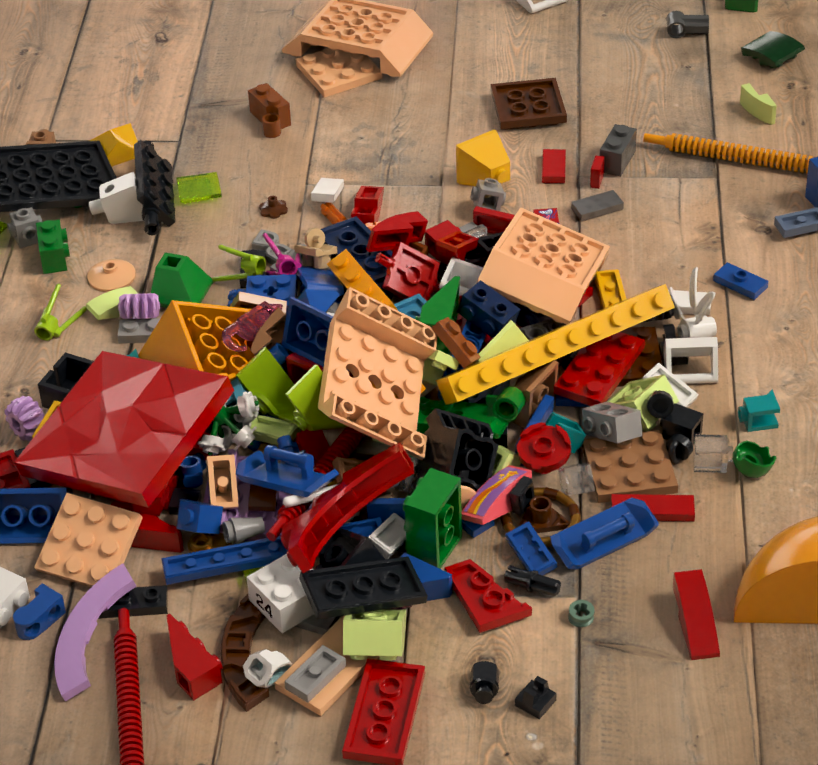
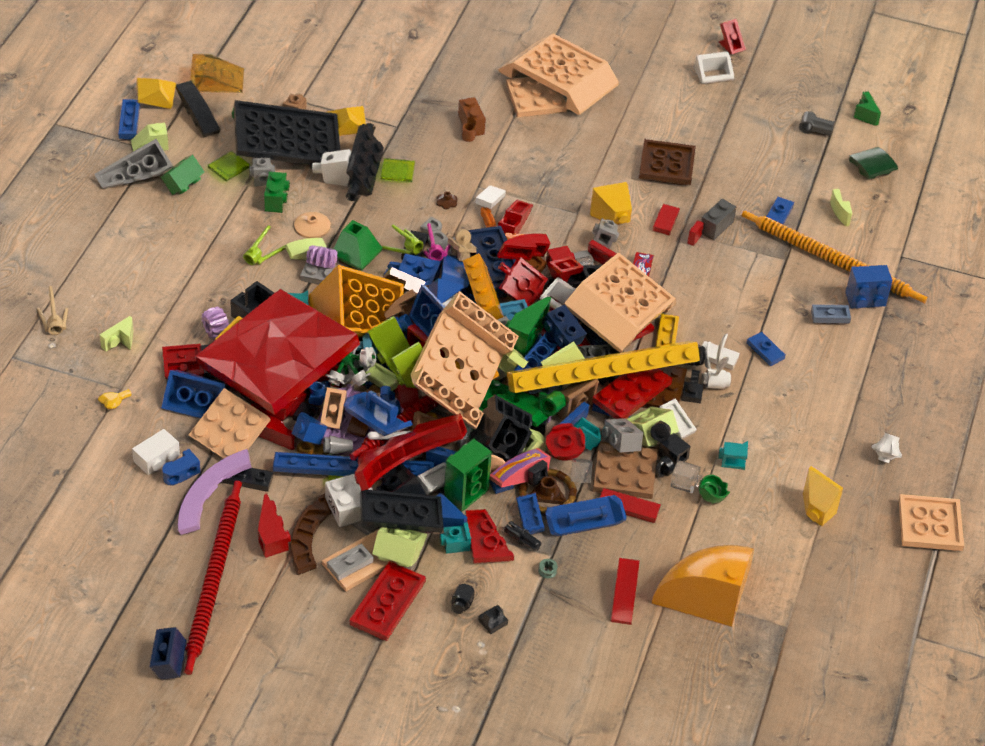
camera: 10 degrees right, 5 degrees up
(248, 325) = (390, 294): clear pink plate -> none
(265, 667) = (318, 548): white rock -> none
(446, 607) = (456, 538): none -> teal brick
(458, 345) = (528, 348): dark orange plate -> none
(597, 205) = (685, 260): flat silver tile -> none
(687, 123) = (780, 210): none -> blue plate
(693, 347) = (702, 393): white tile -> none

